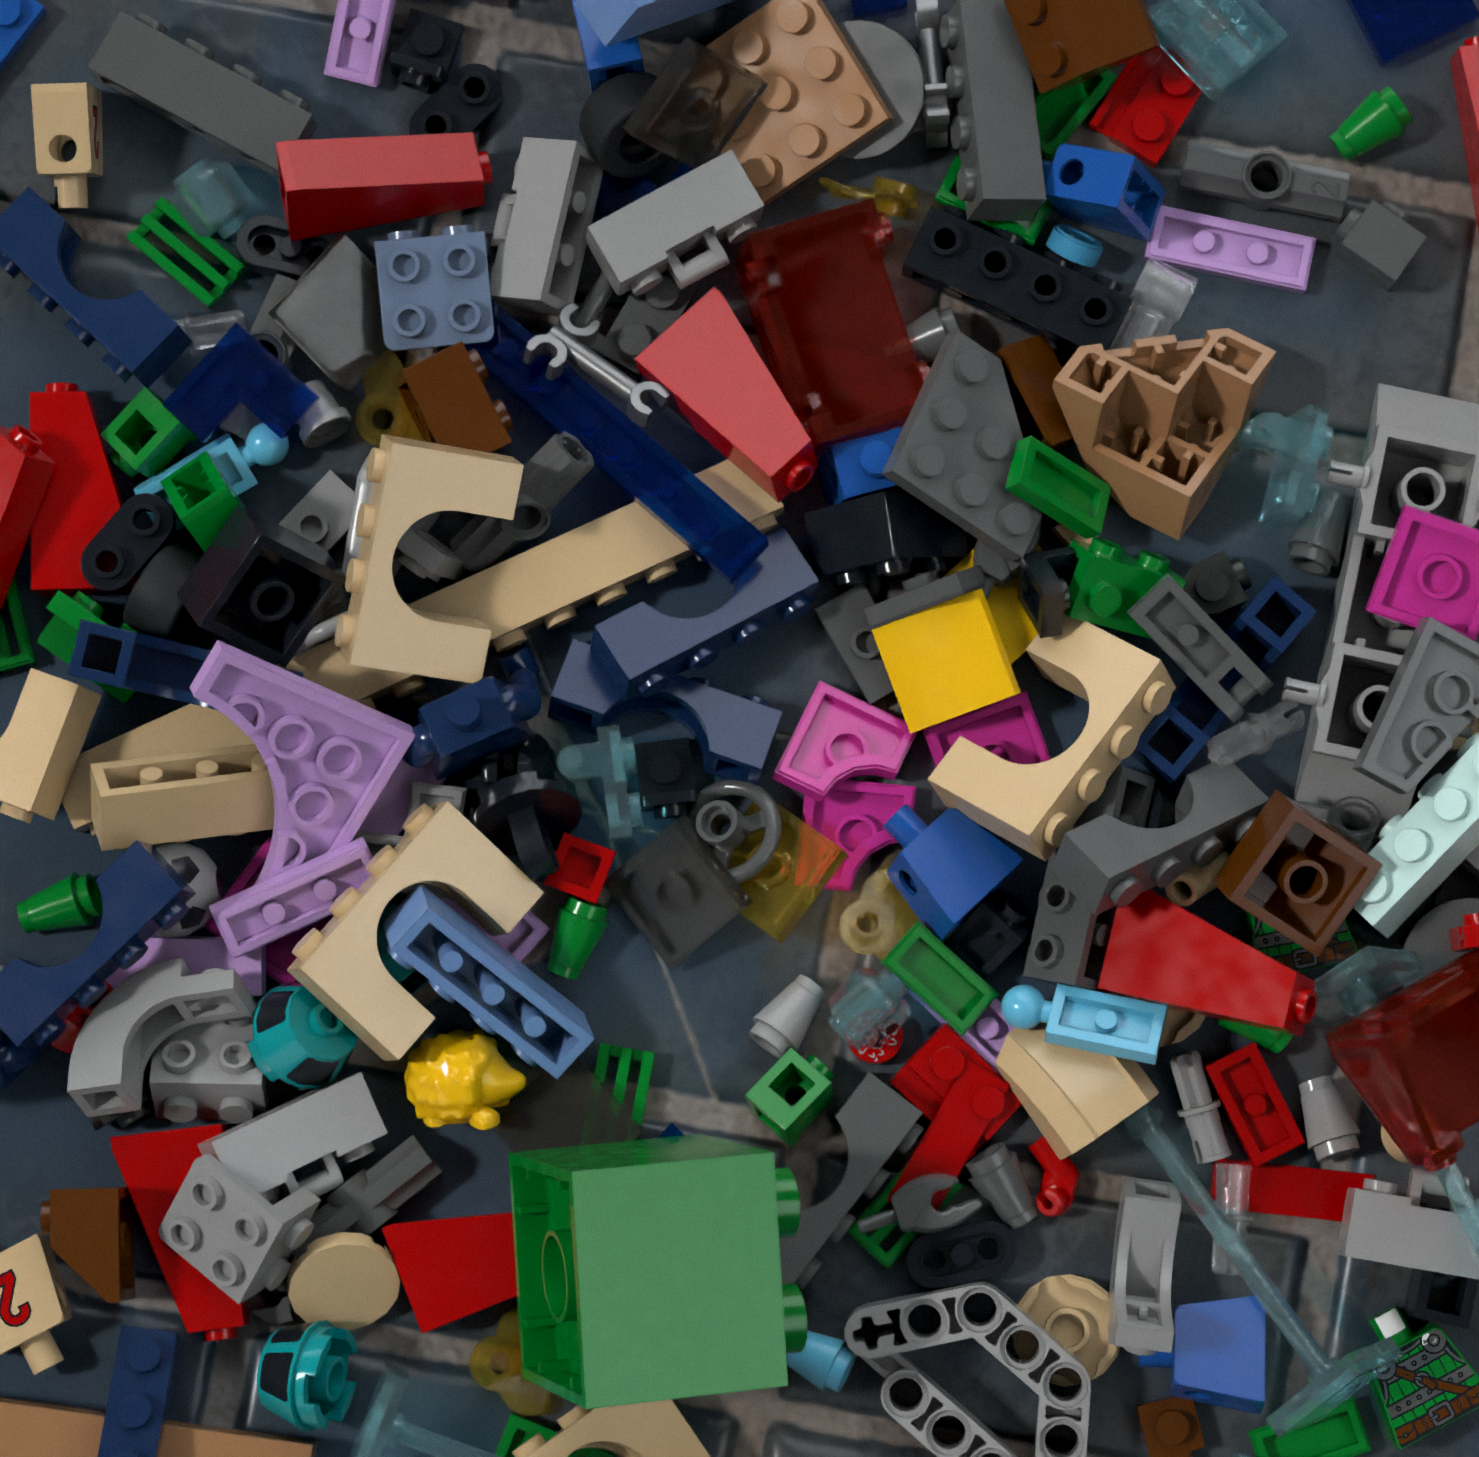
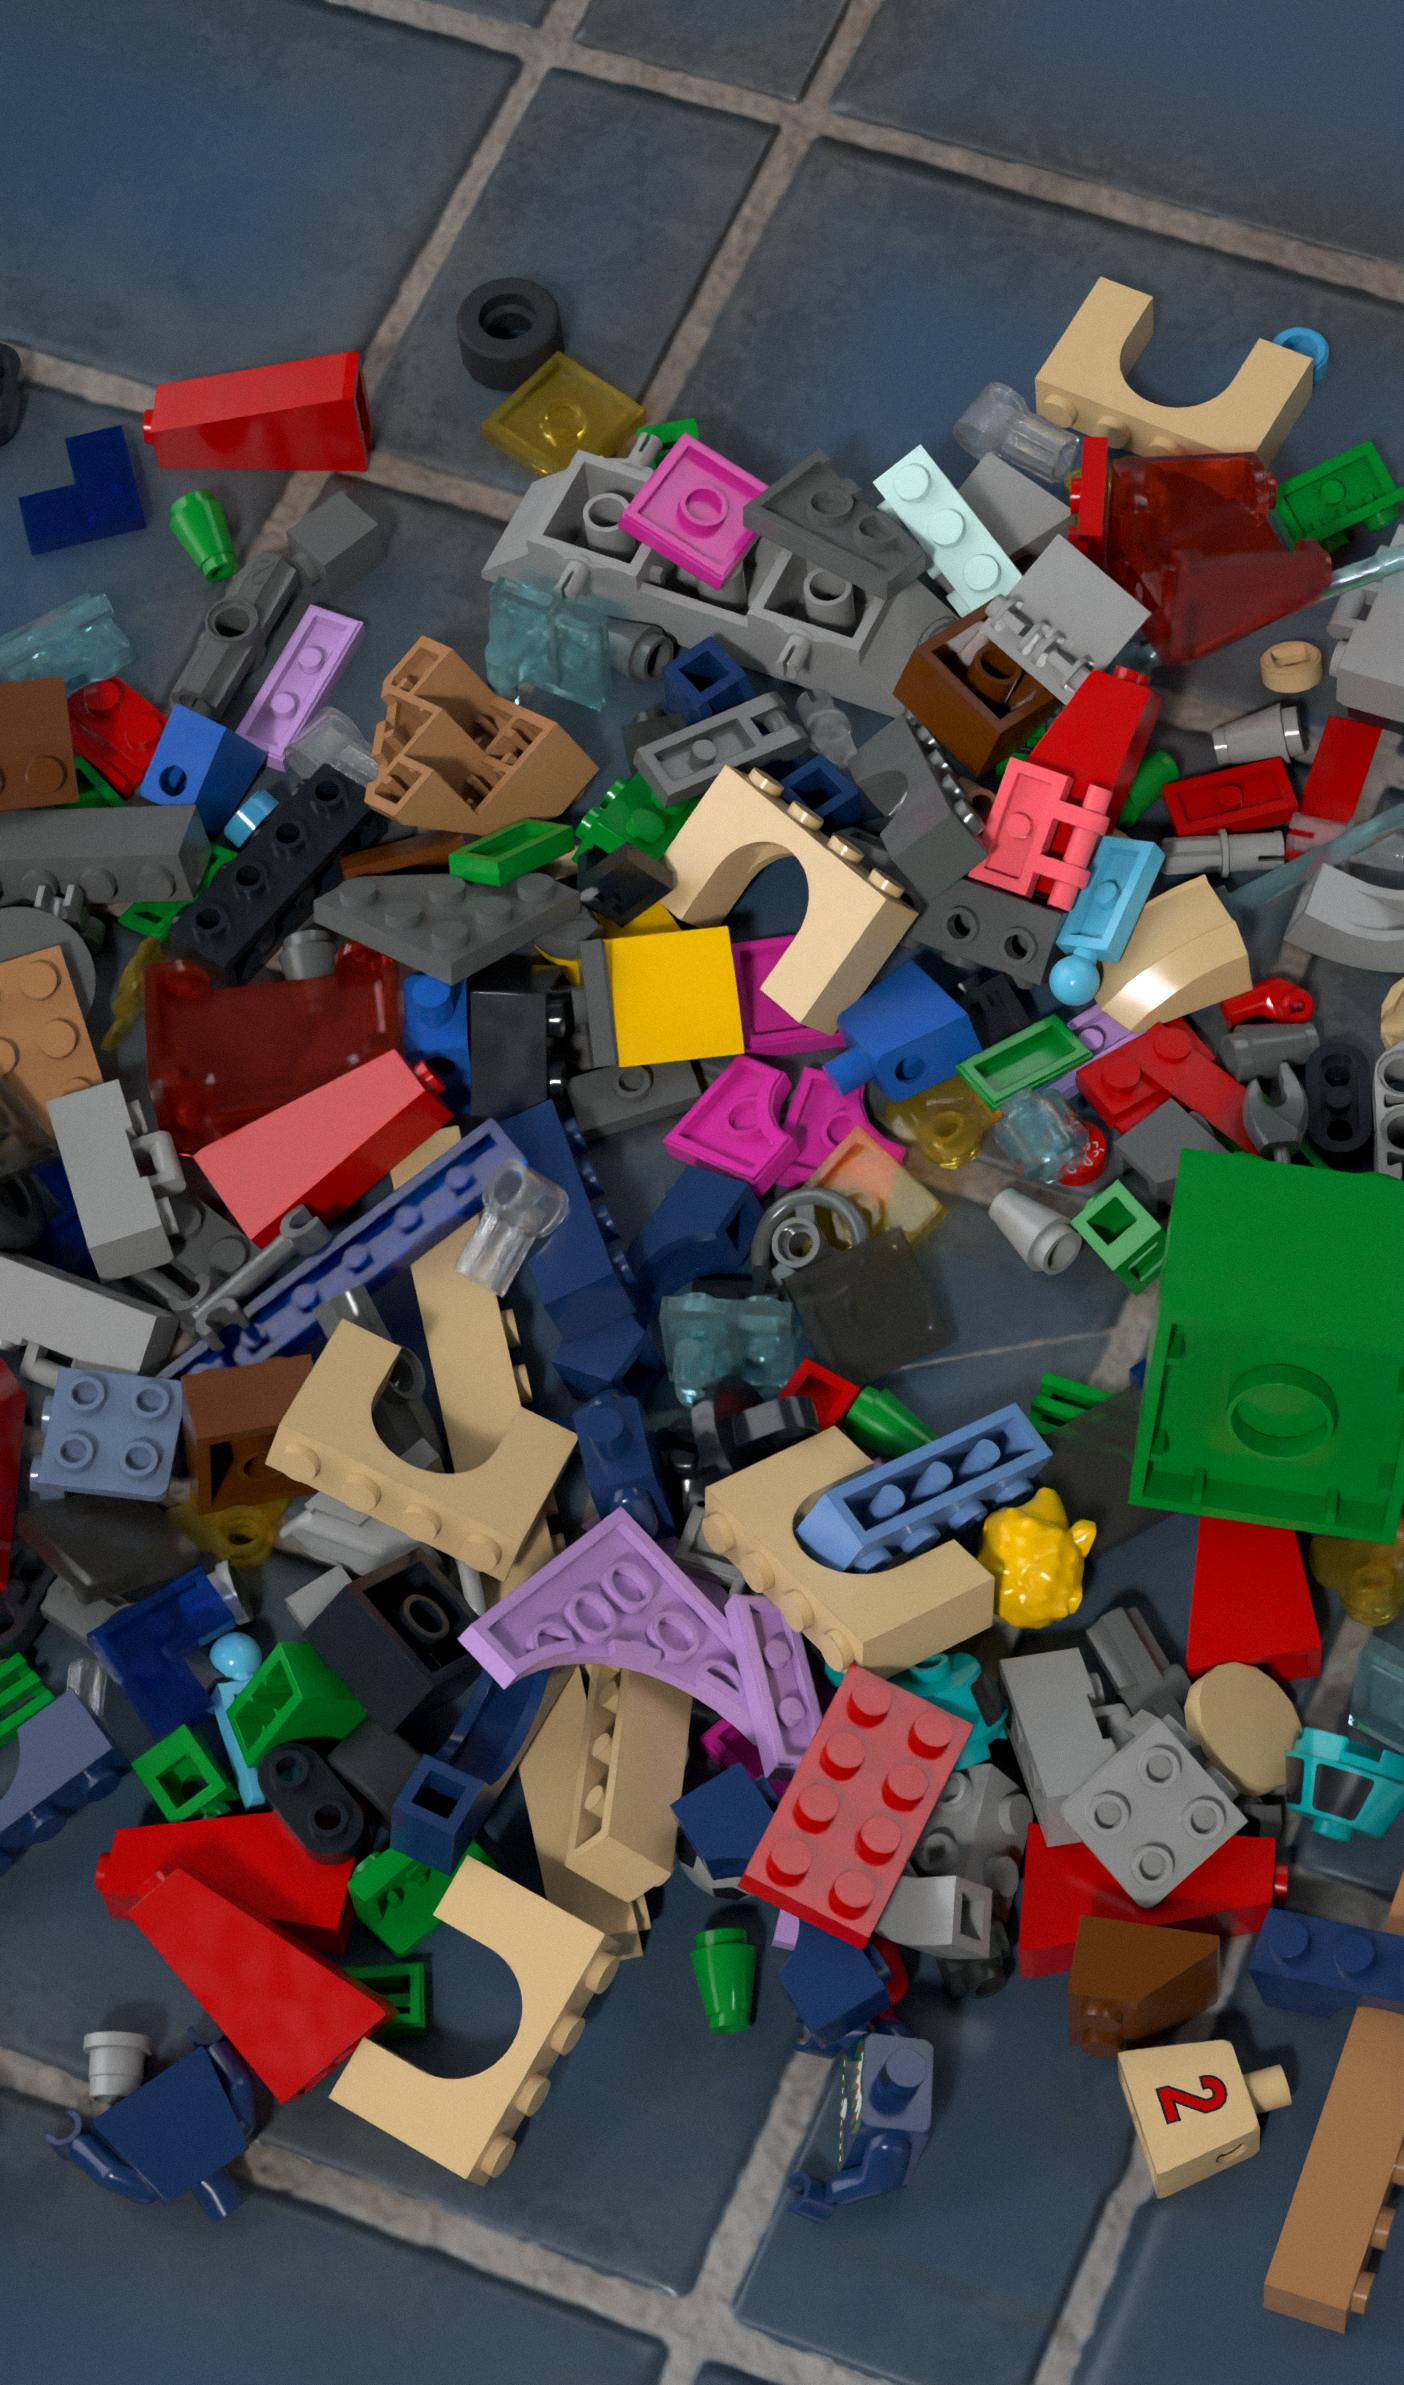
camera: 70 degrees left, 25 degrees down
(167, 990) = (856, 1806): none -> plate
(680, 579) = (518, 1210): none -> clear piece
(1144, 936) = (1023, 828): none -> coral plate
(1351, 936) = (1064, 619): none -> light grey hinge

